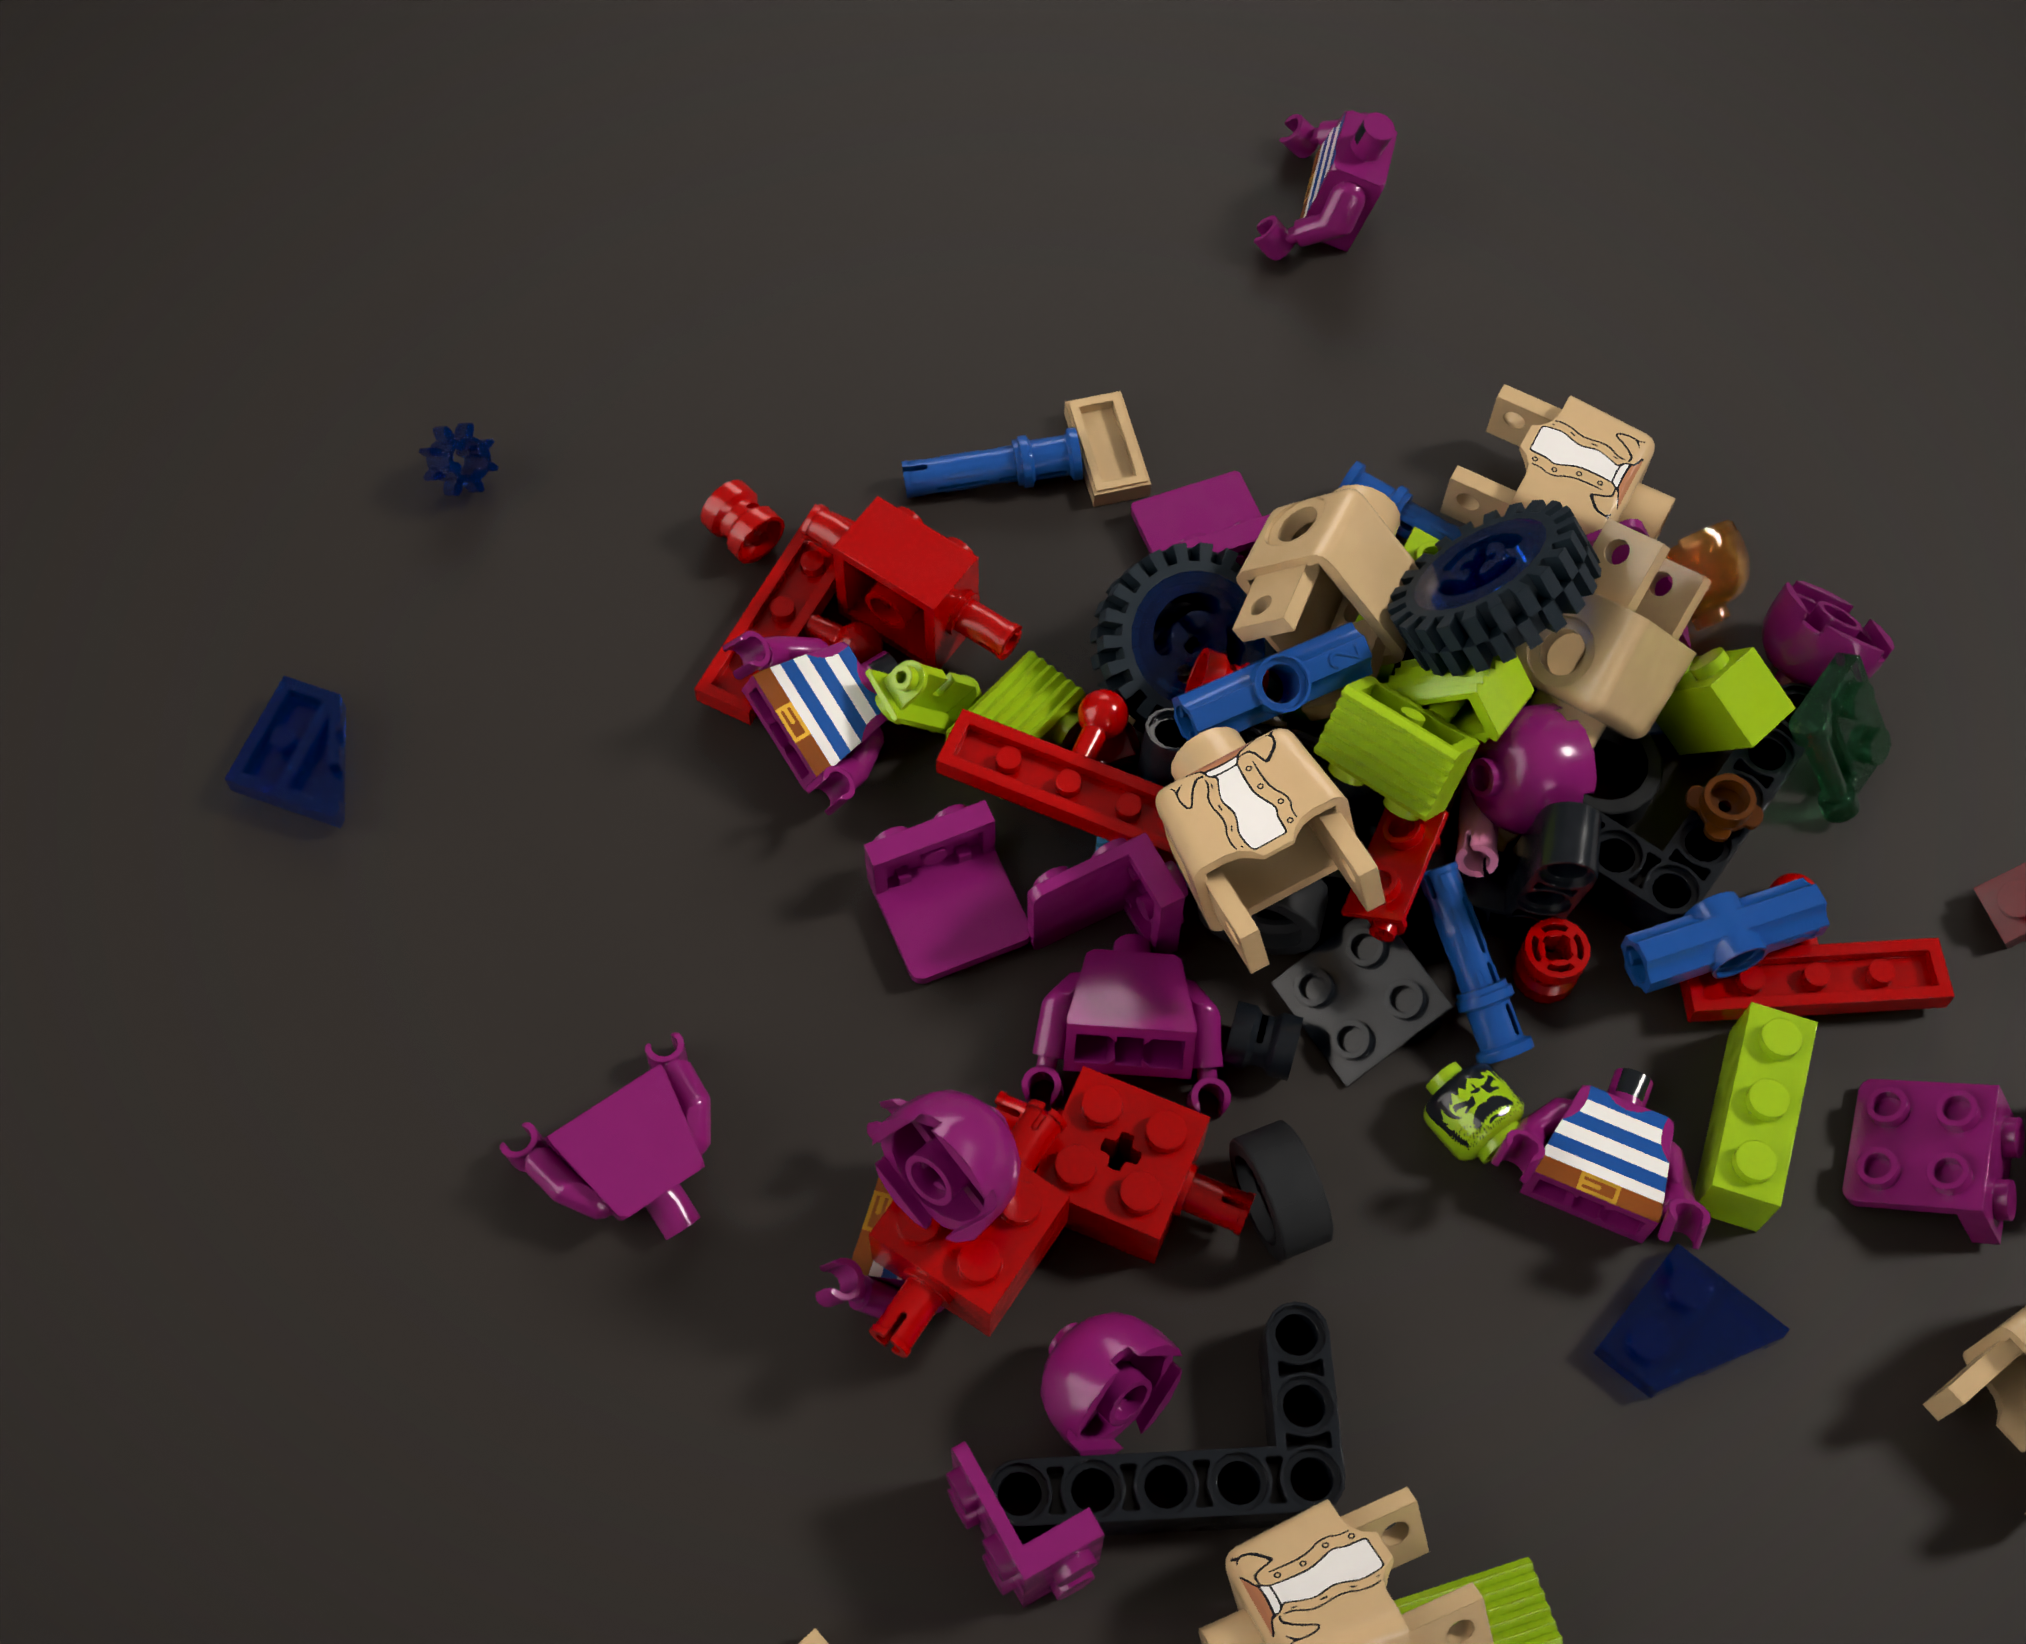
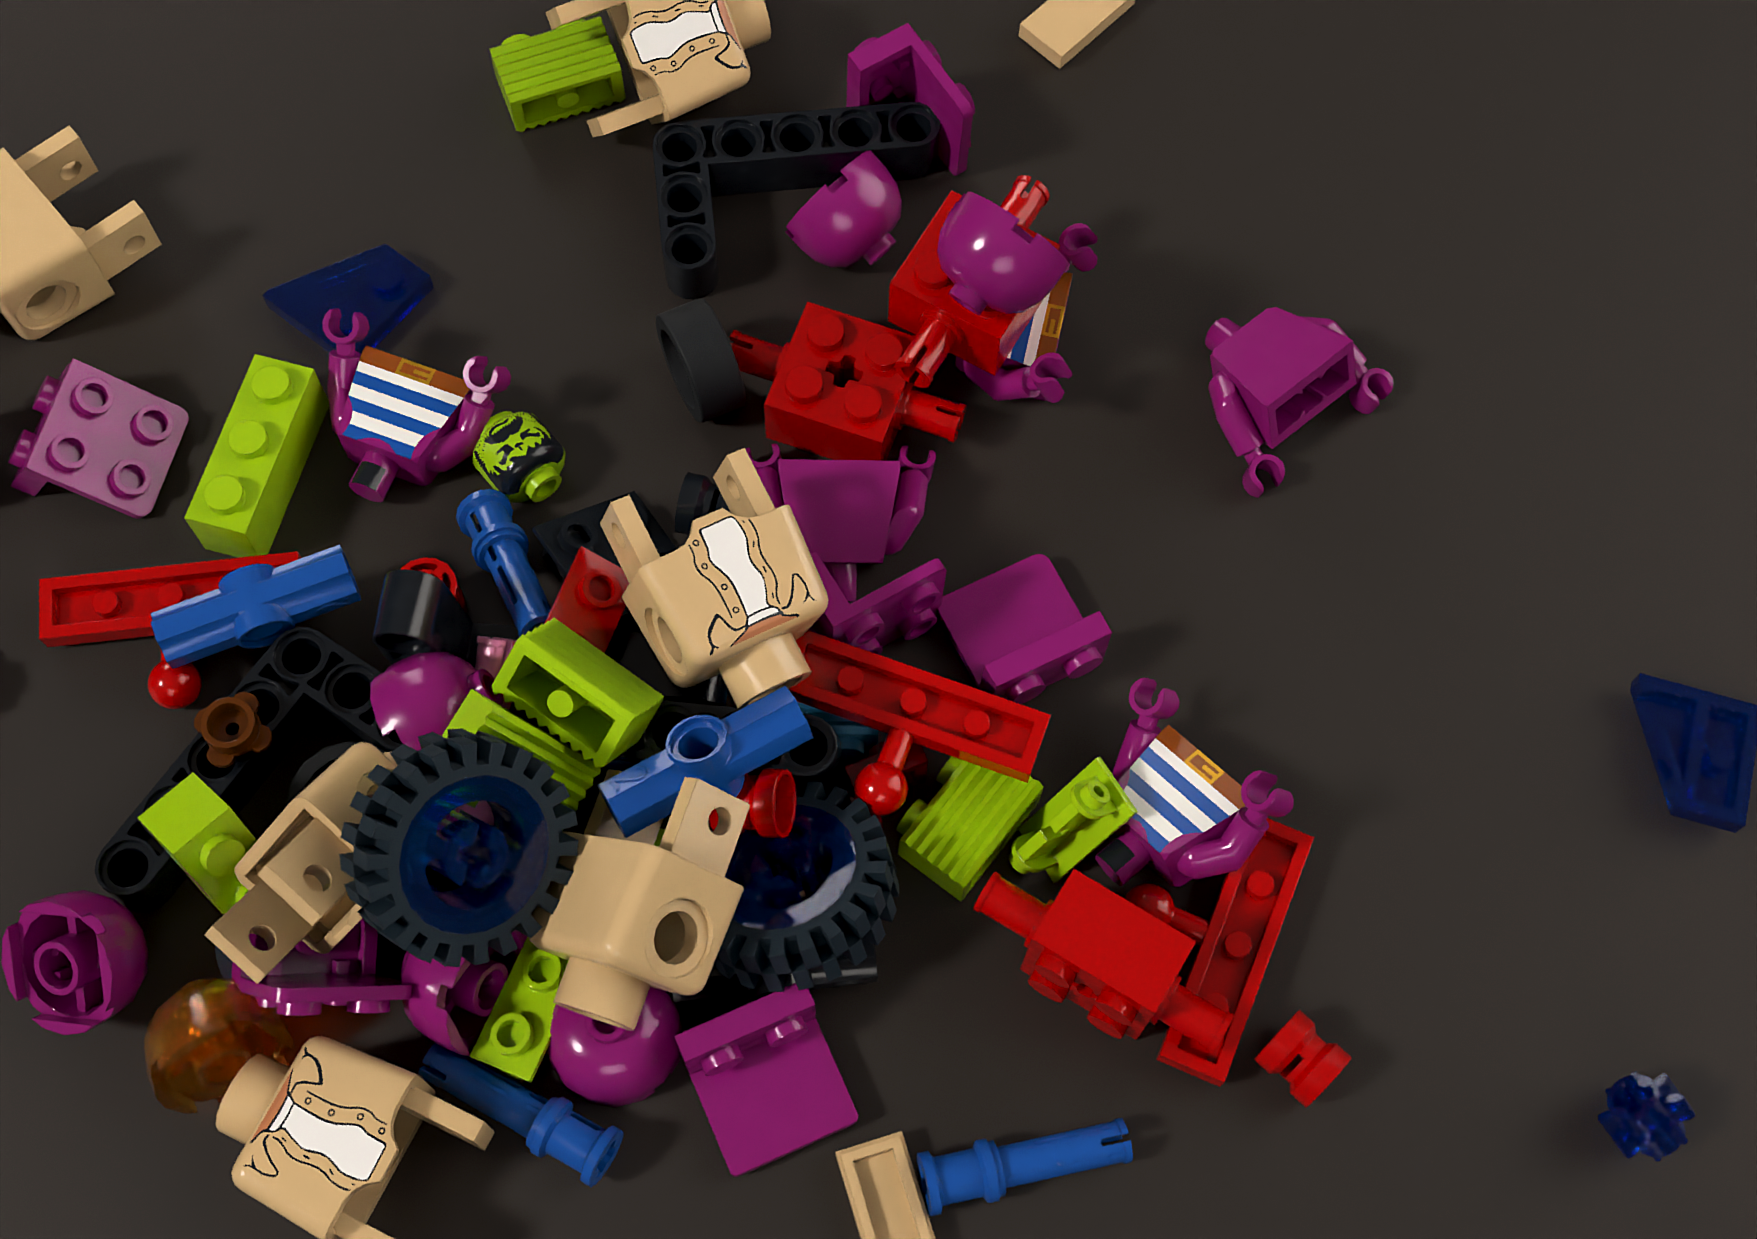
camera: 175 degrees right, 5 degrees up
(1841, 735) = (76, 851): clear green plate -> none

